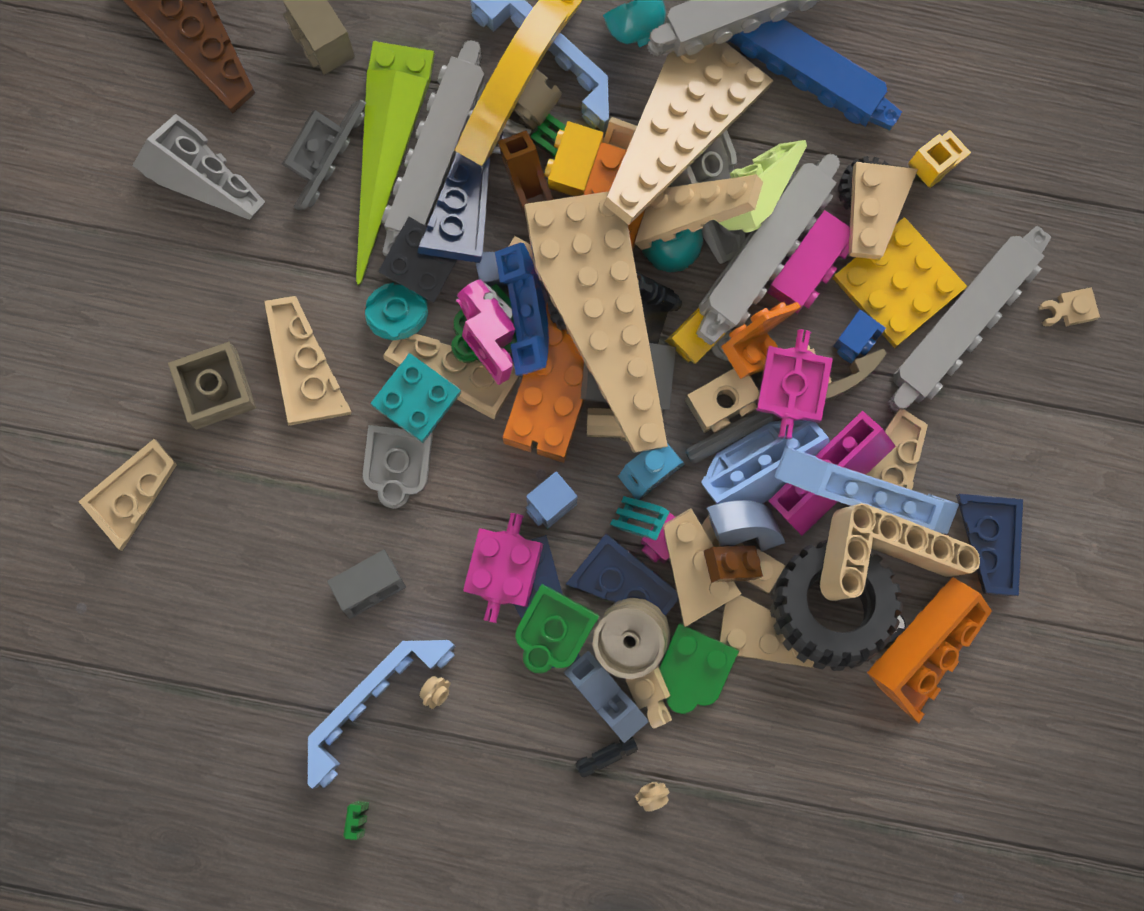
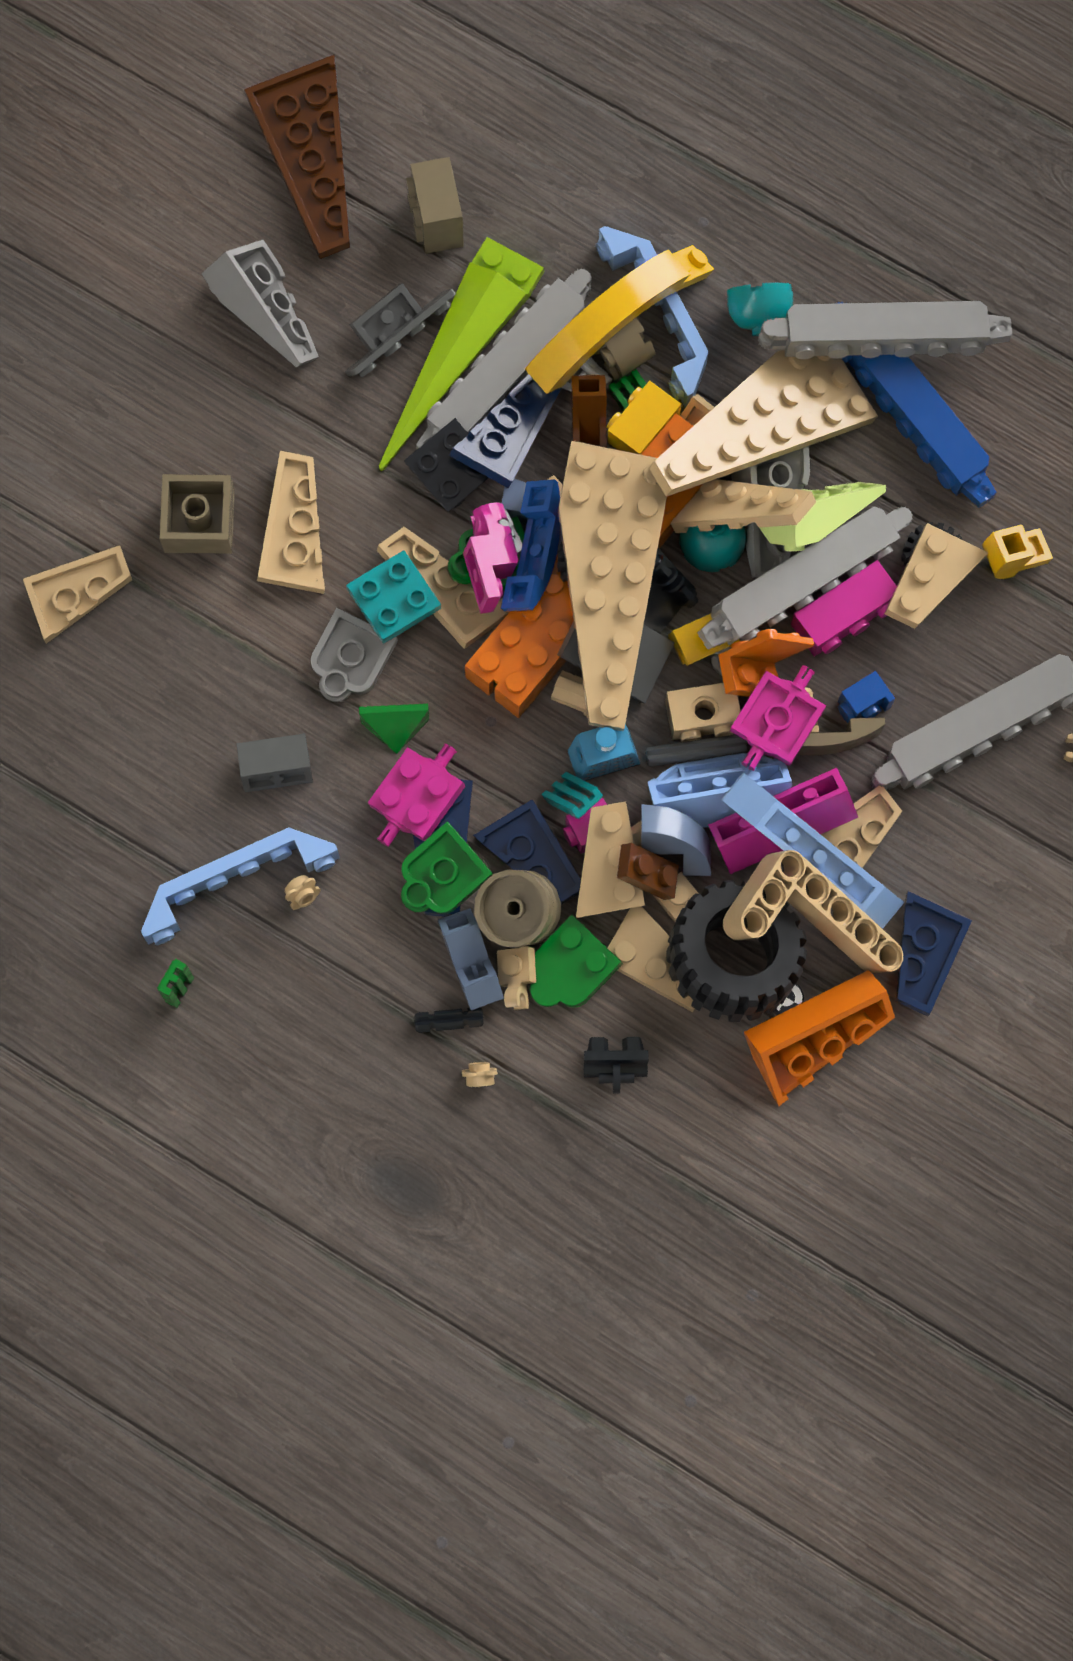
camera: 20 degrees right, 5 degrees down
(395, 312) = (406, 508): teal tile -> none
(459, 510) = (394, 723): none -> green slope
(550, 501) = (488, 745): medium blue brick -> none
(768, 745) = (615, 1066): none -> black hips
(903, 285) = (931, 665): yellow plate -> none

